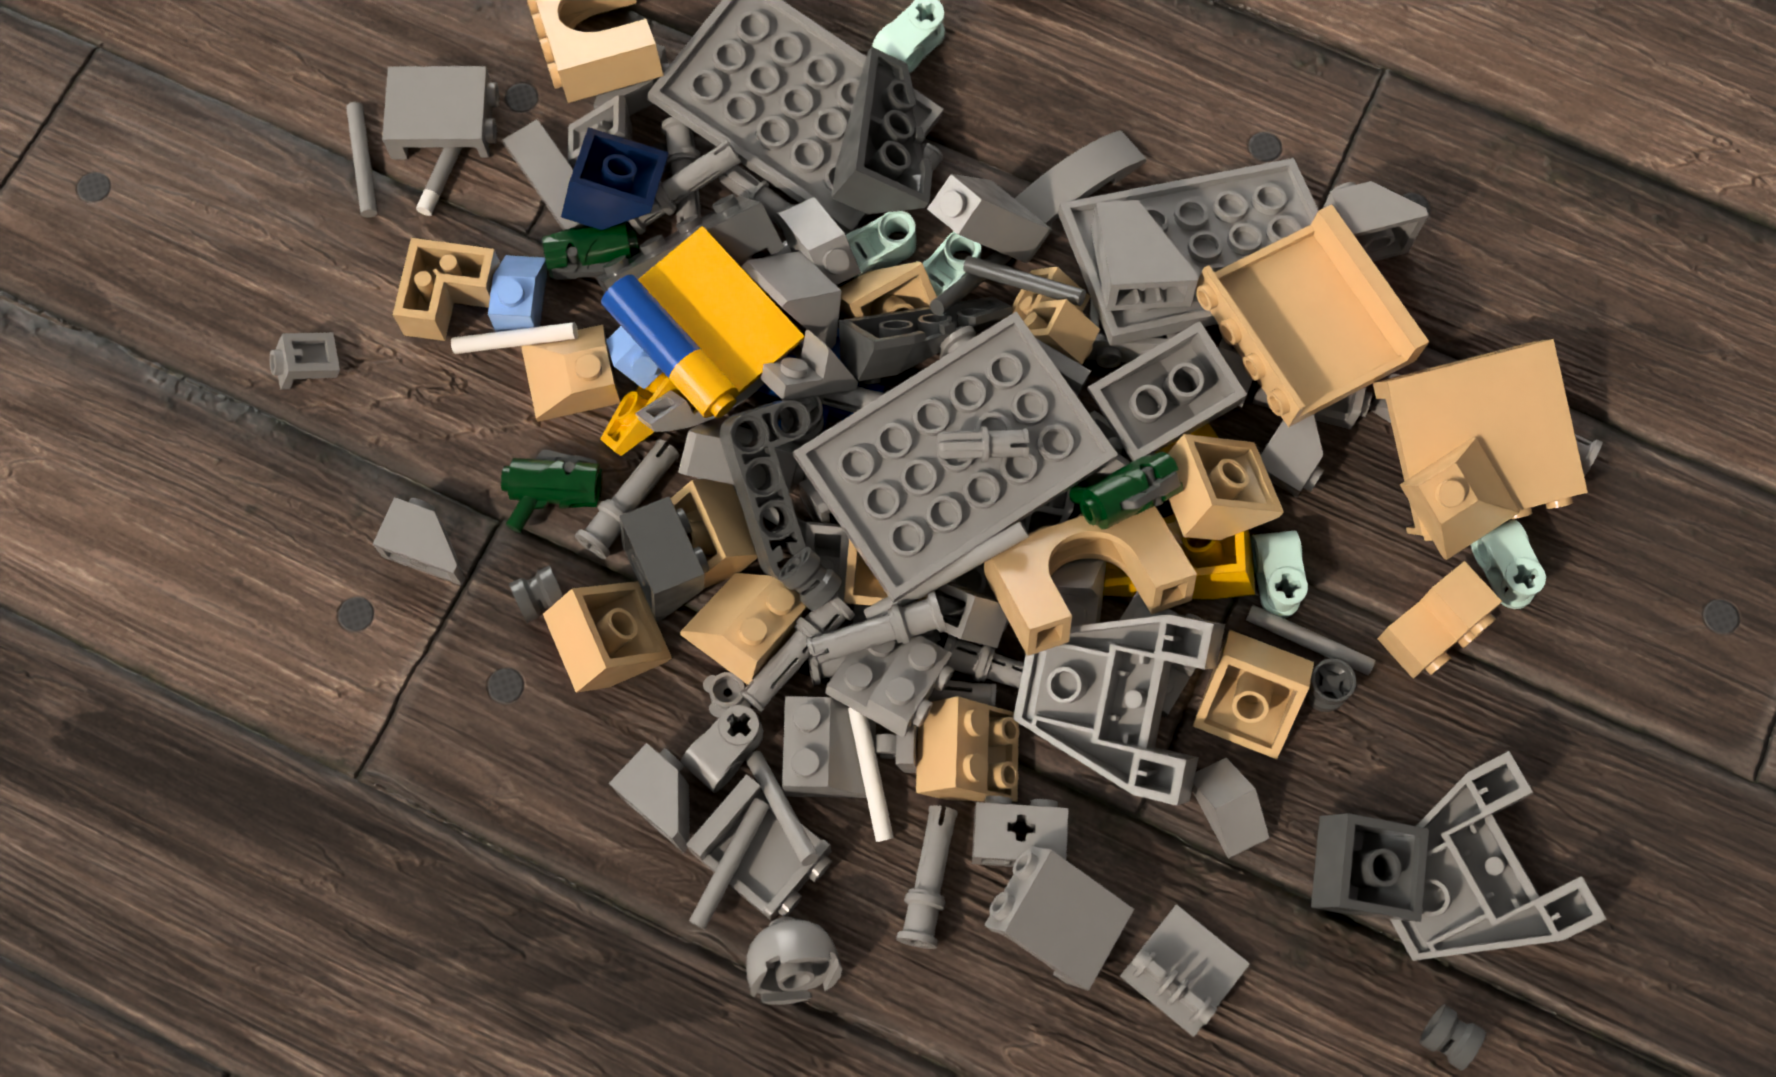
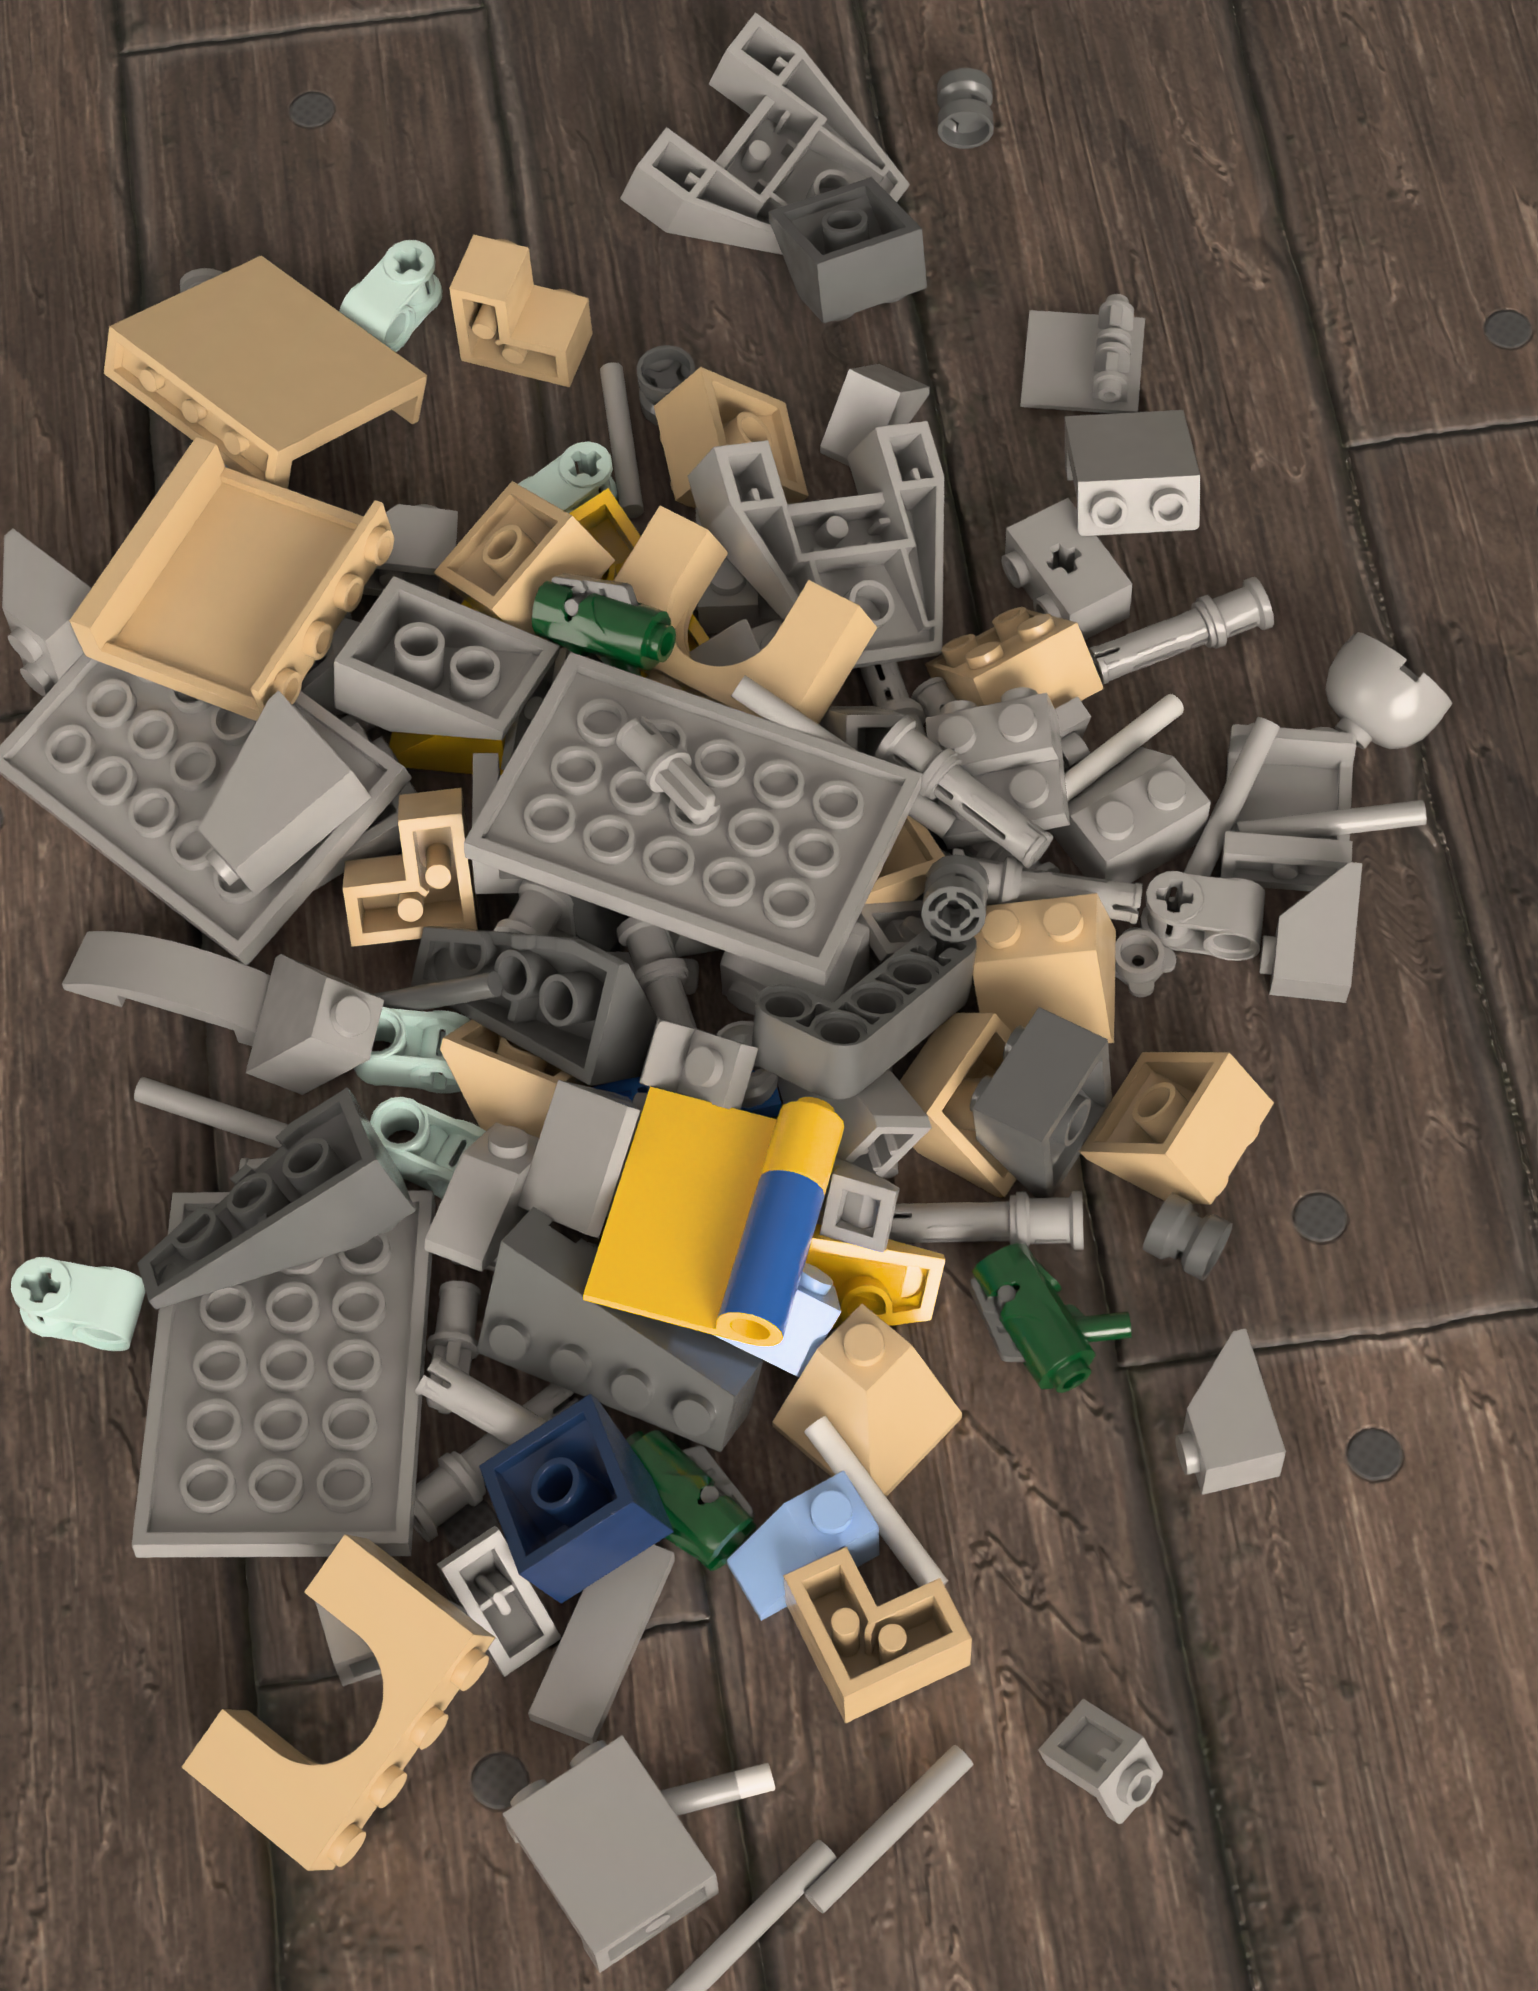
camera: 120 degrees left, 10 degrees down
(356, 247) = (888, 1828): none -> light grey bar
(988, 158) = (208, 1111): none -> light grey bar
(1024, 280) = (389, 911): dark grey bar -> none
(1459, 498) = (363, 349): tan slope -> none

